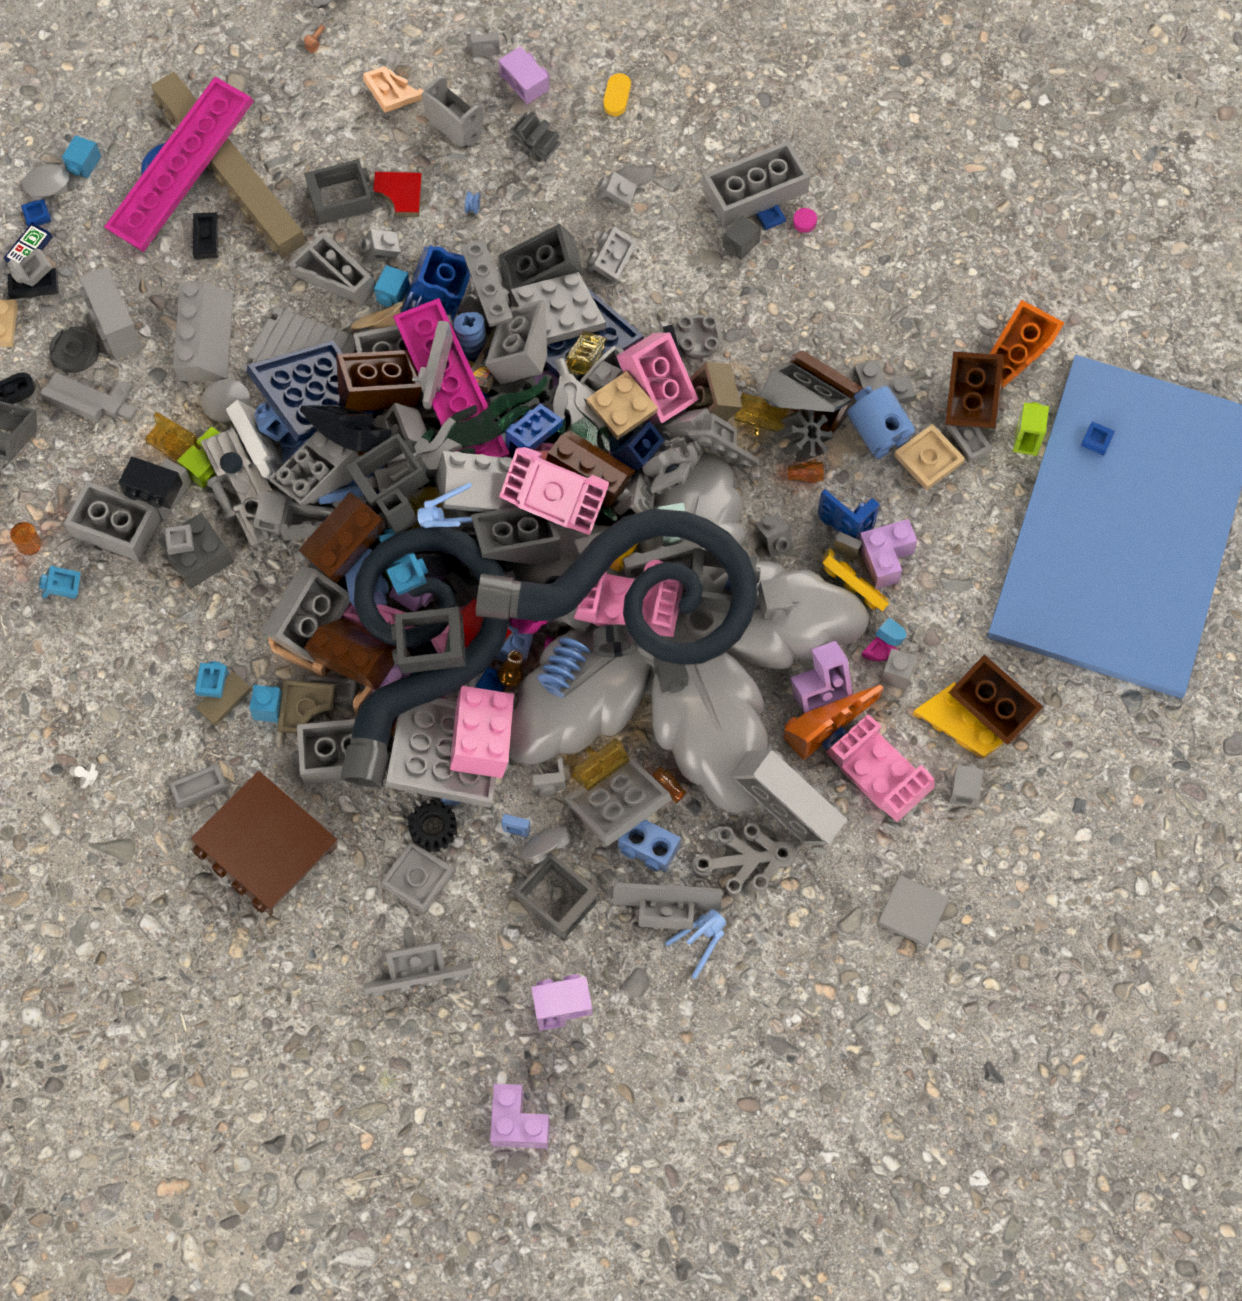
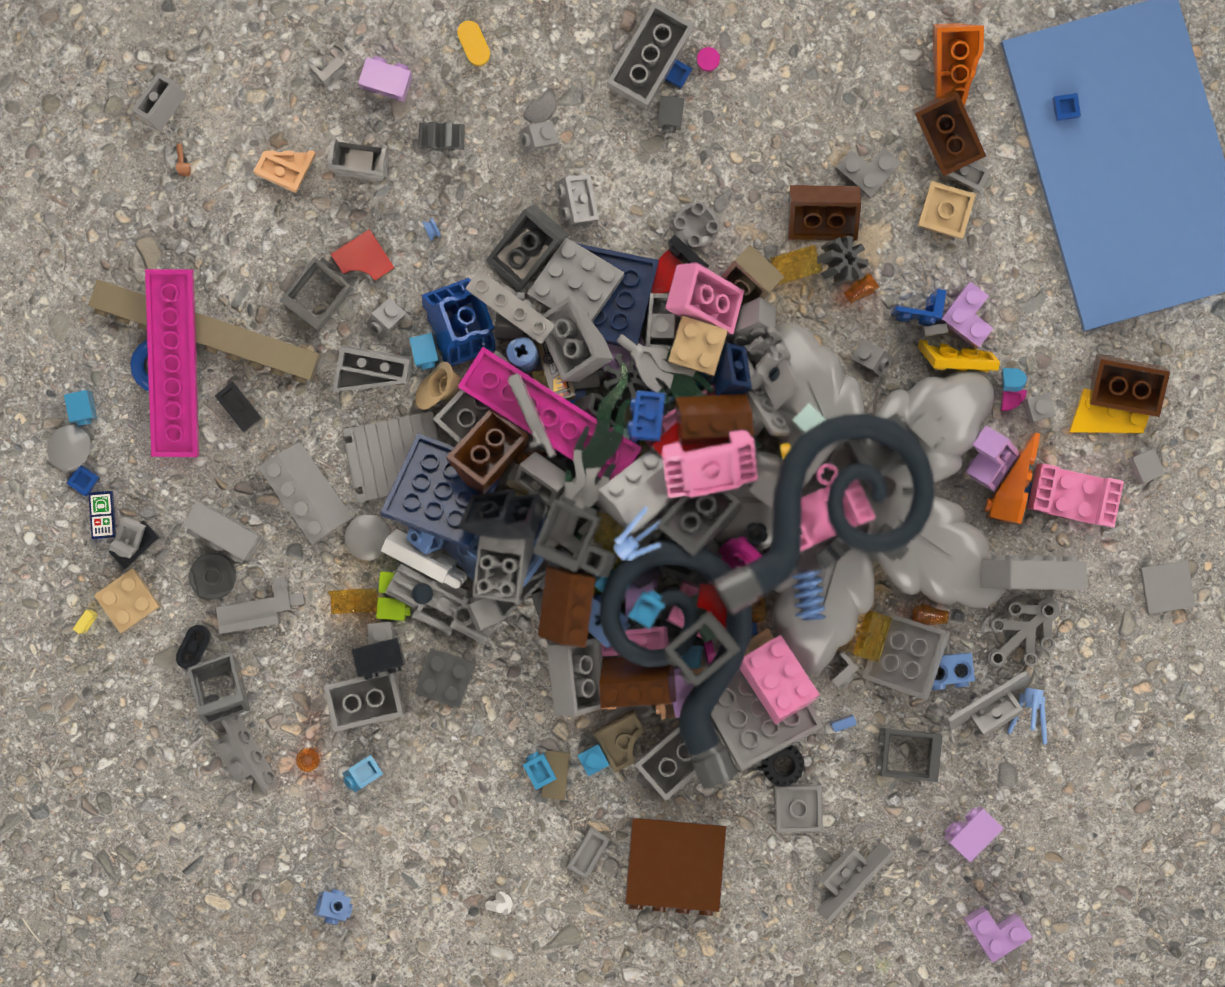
camera: 35 degrees left, 20 degrees up
(179, 539) = (434, 684): light grey tile -> none
(542, 843) = (875, 724): light grey dish -> none
(583, 364) = (634, 327): clear yellow slope -> none
(721, 439) = (788, 319): light grey bracket -> none
(798, 389) = (824, 230): dark grey slope -> none
(880, 420) = (894, 210): medium blue cylinder -> none
(1030, 428) = (1012, 135): lime piece -> none

